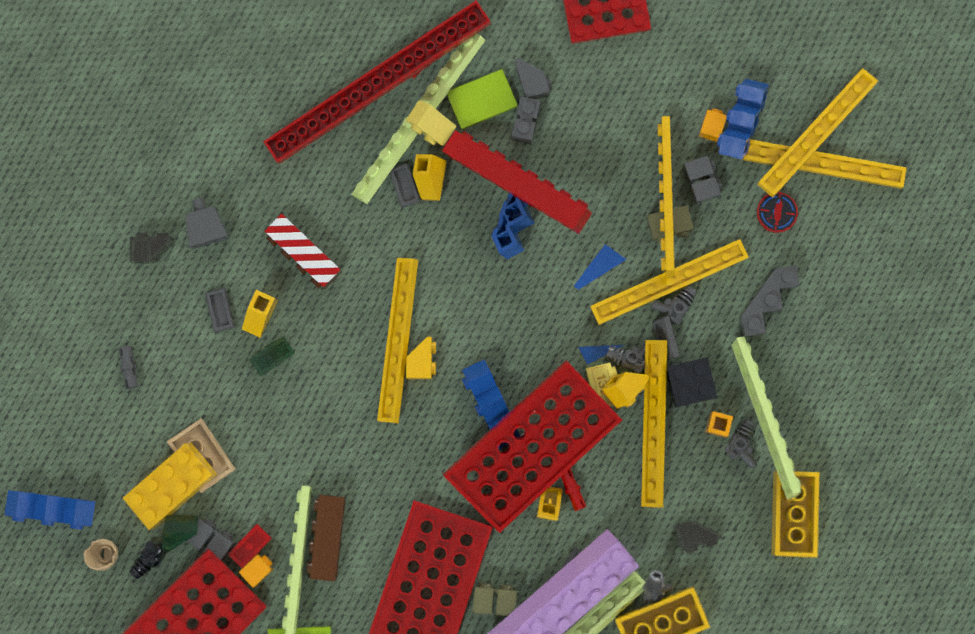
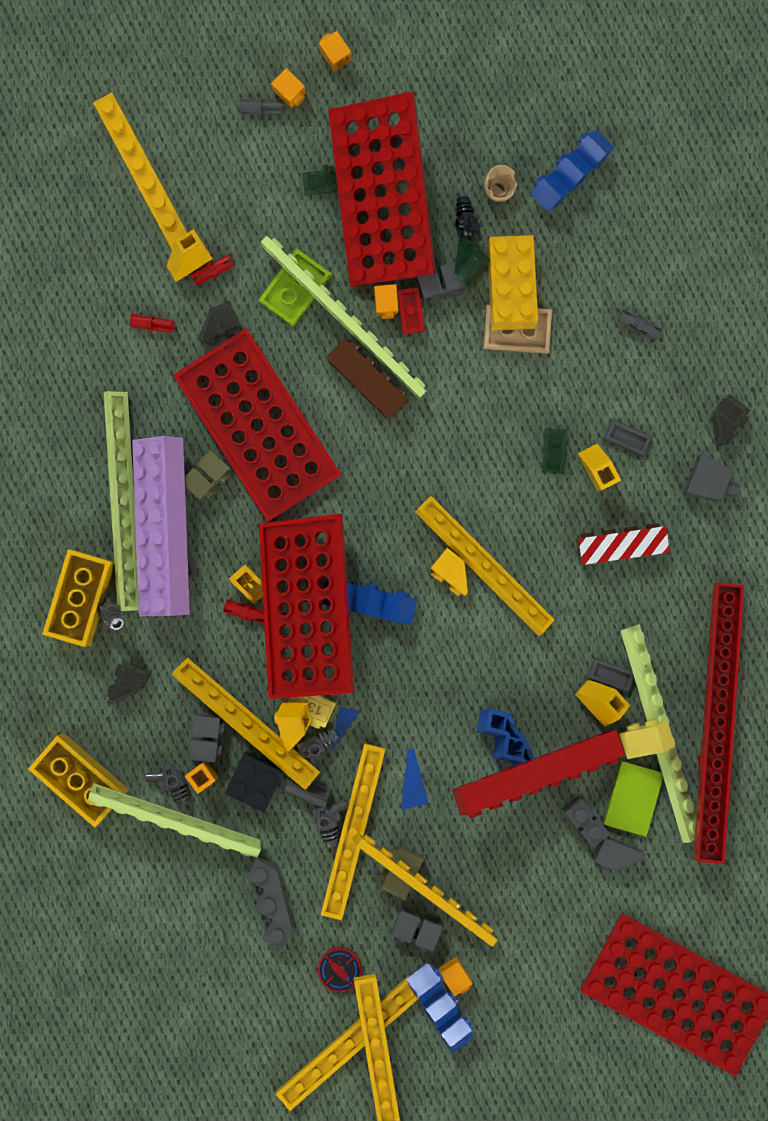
camera: 130 degrees right, 5 degrees up
(697, 438) = (206, 749): none -> dark grey piece

